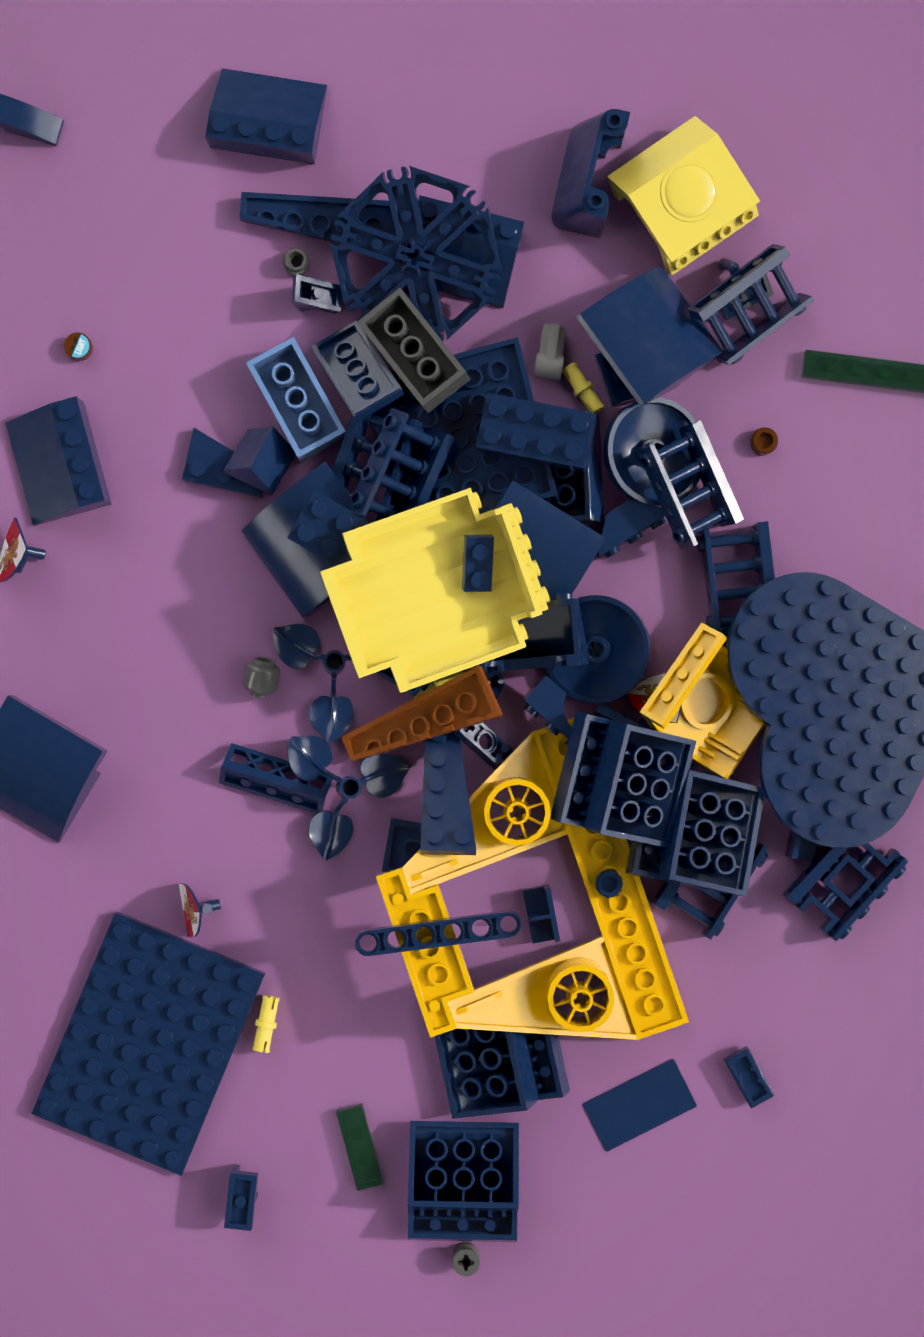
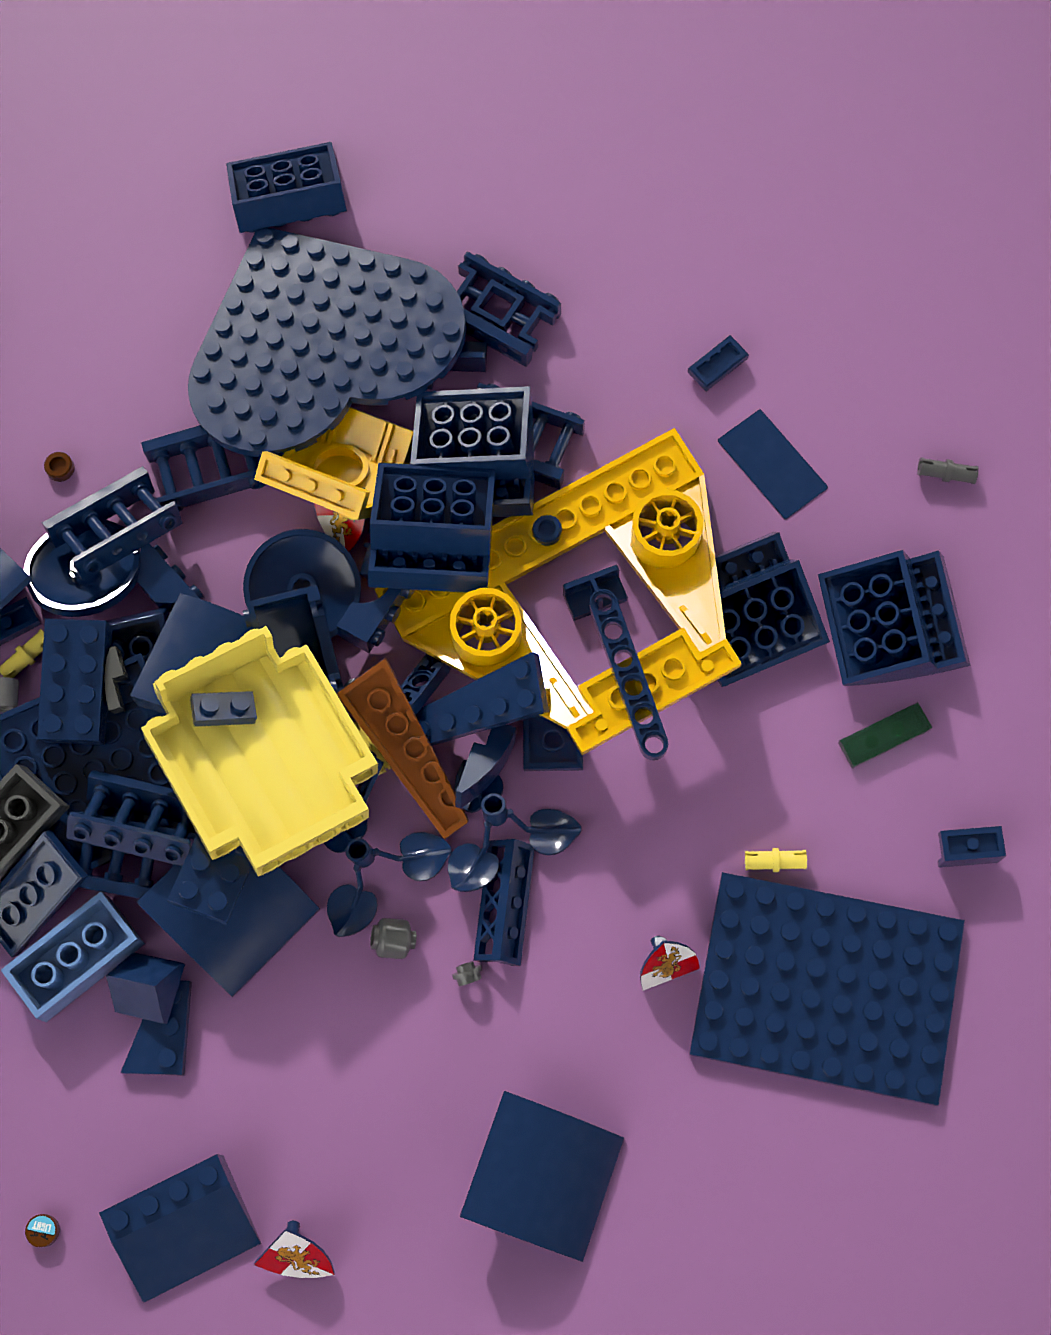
camera: 90 degrees left, 15 degrees down
(219, 736) = (467, 973): none -> dark grey plate
(395, 783) = (485, 763): none -> dark blue slope
(466, 1251) = (971, 608): dark grey wheel -> none
(539, 469) = (114, 672): none -> dark grey slope
(598, 1267) = (947, 470): none -> dark grey pin

